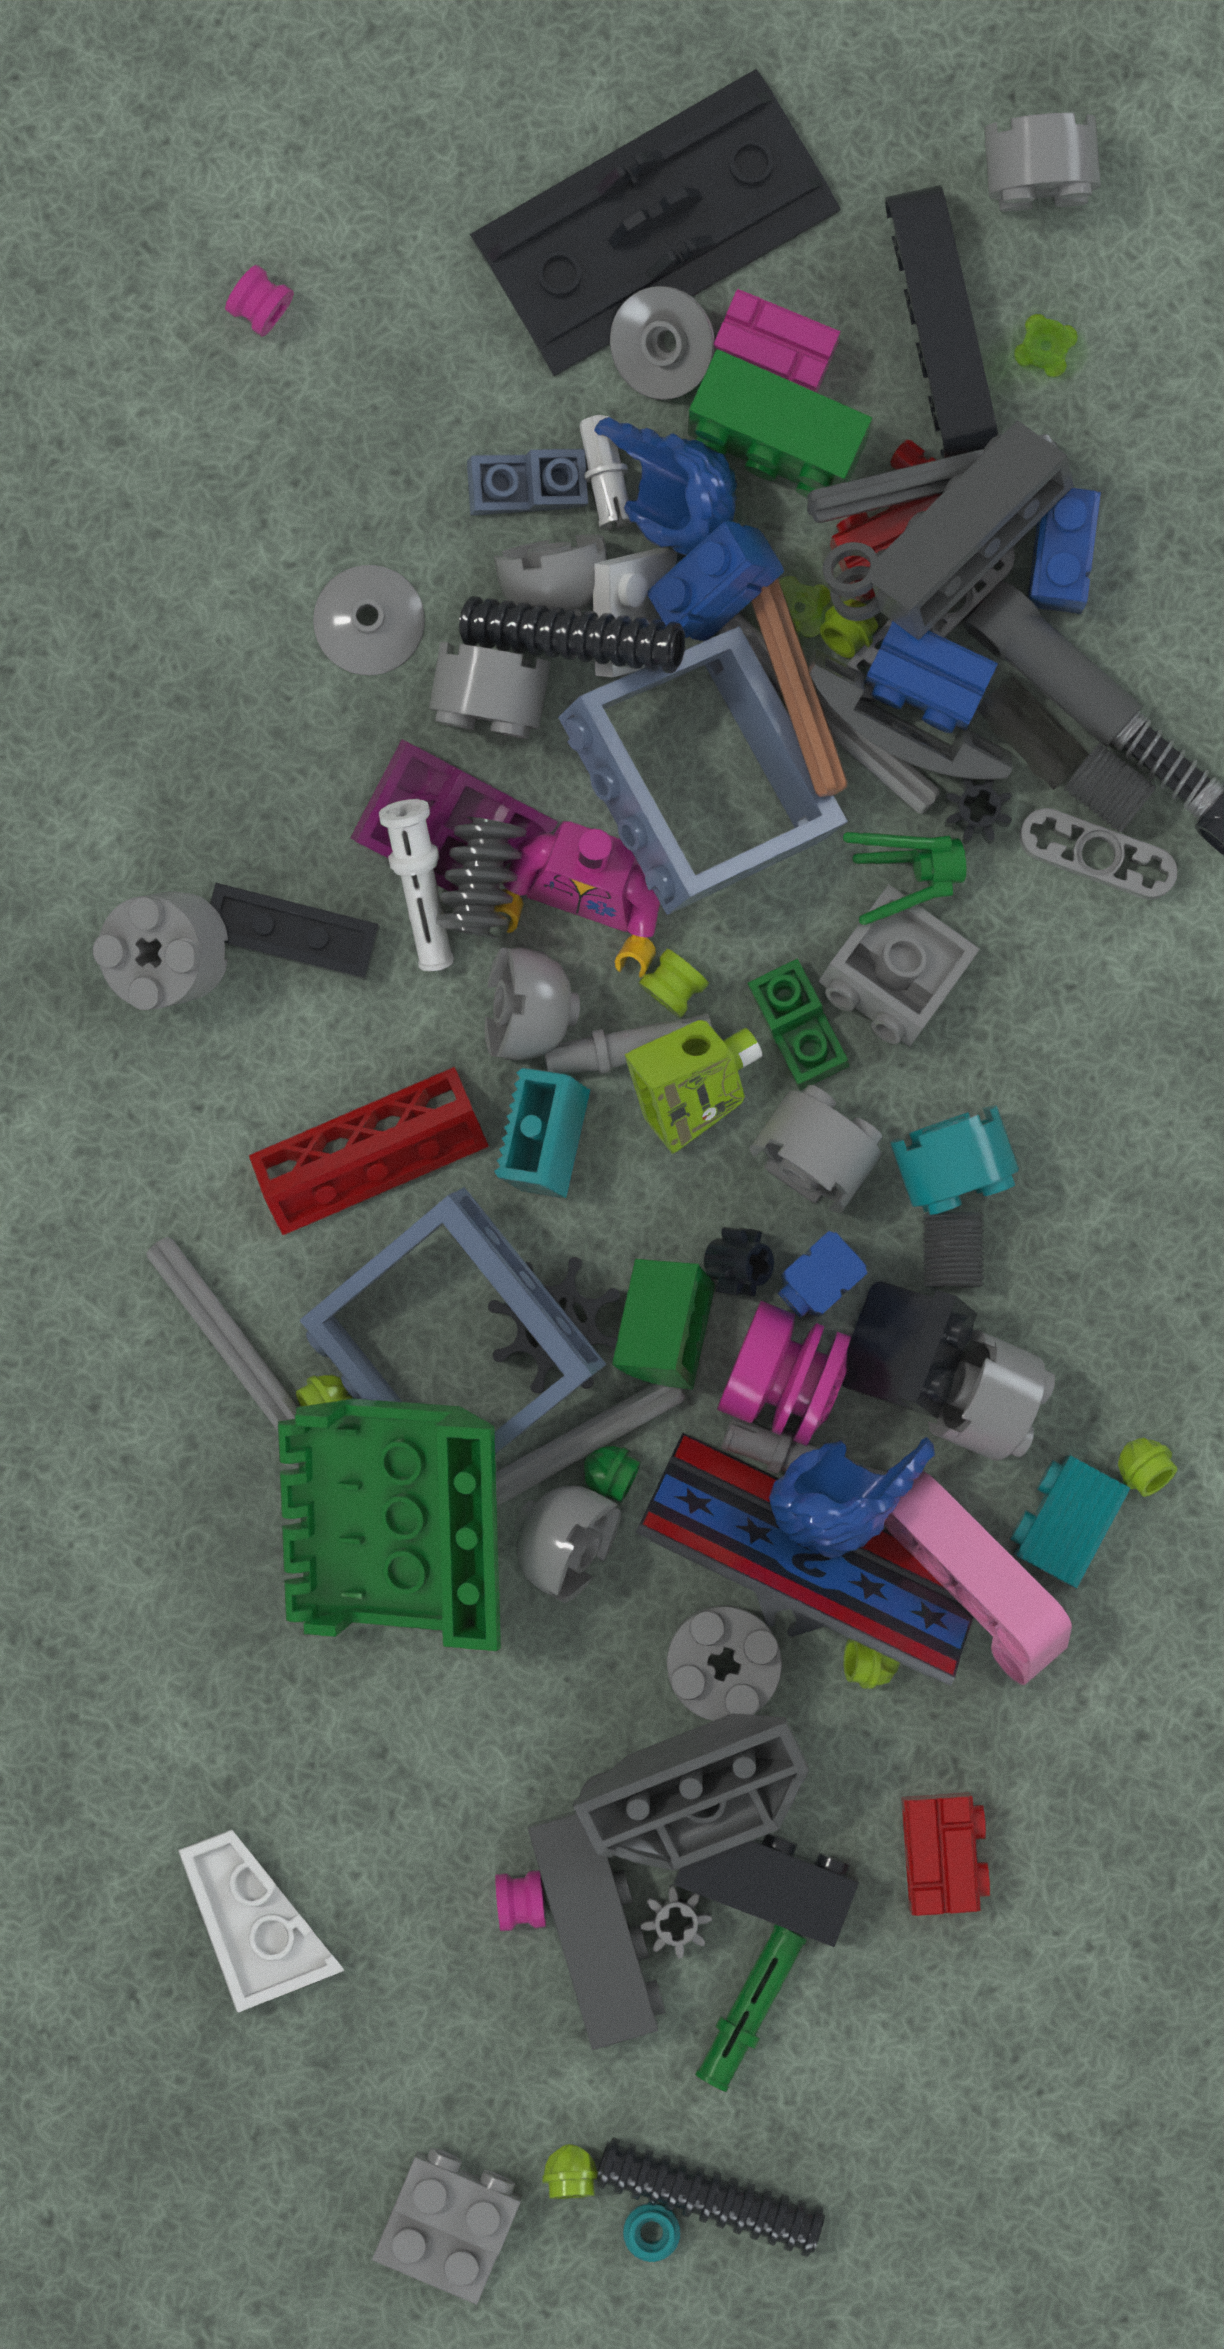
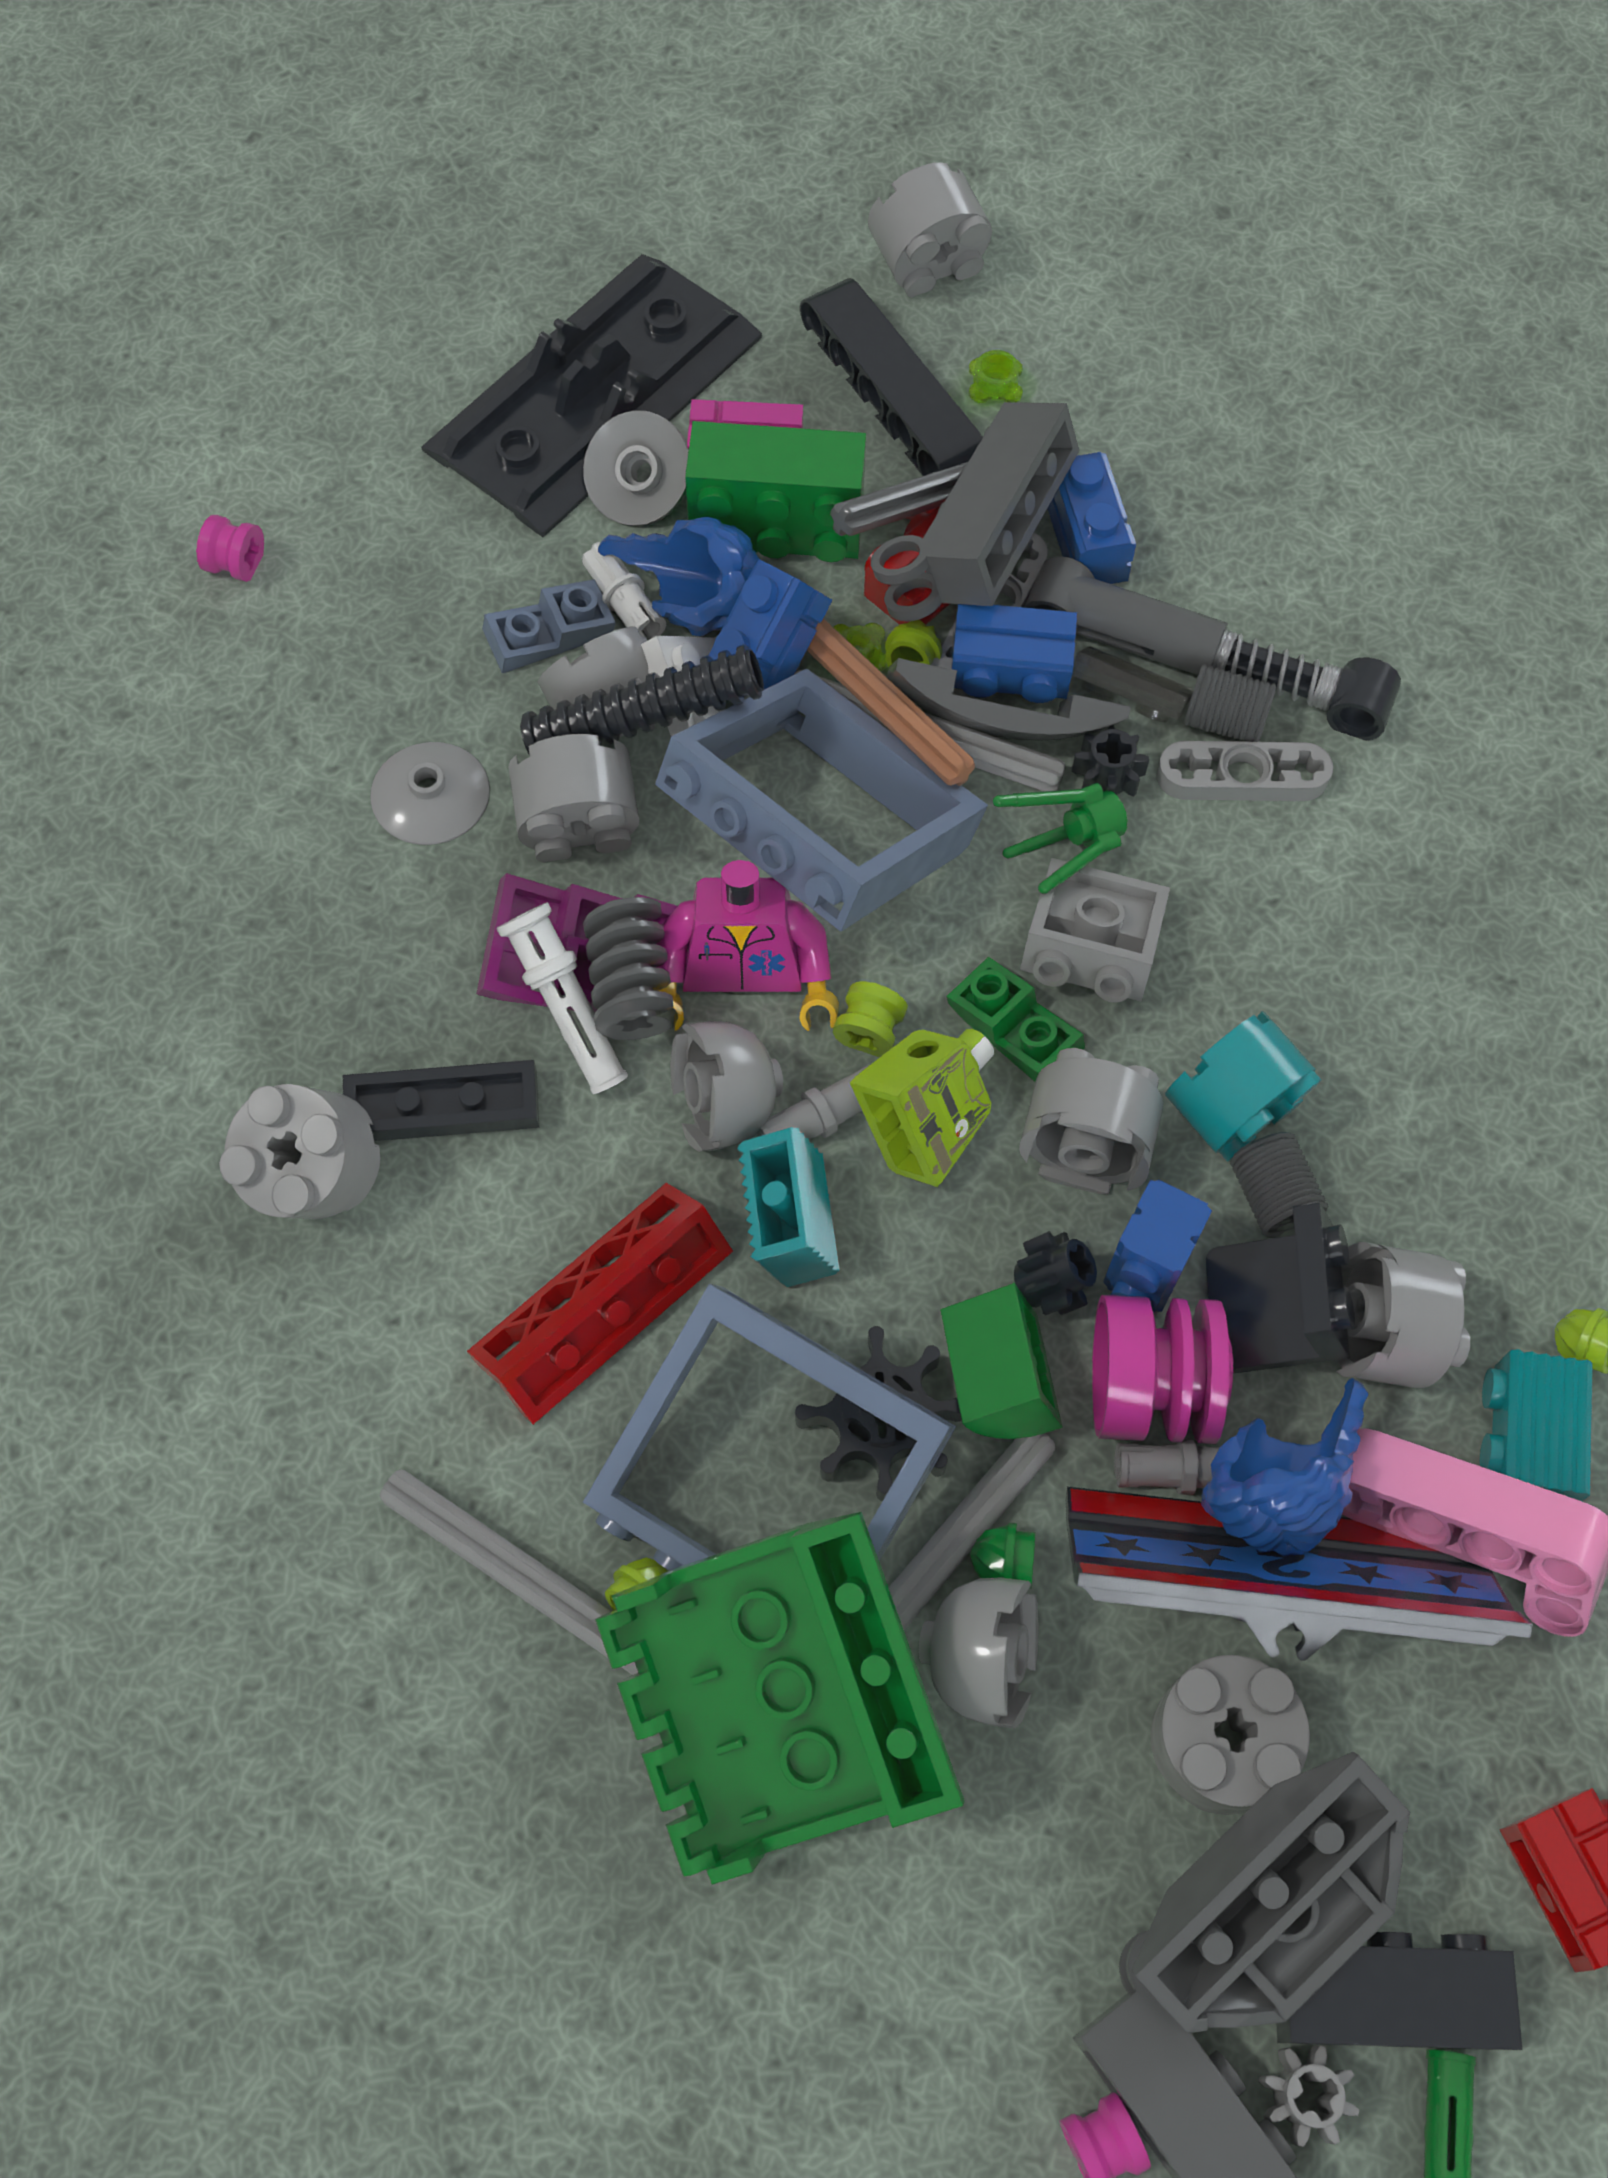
camera: 25 degrees left, 20 degrees down
(867, 1665) = (1392, 1672): lime plate -> none

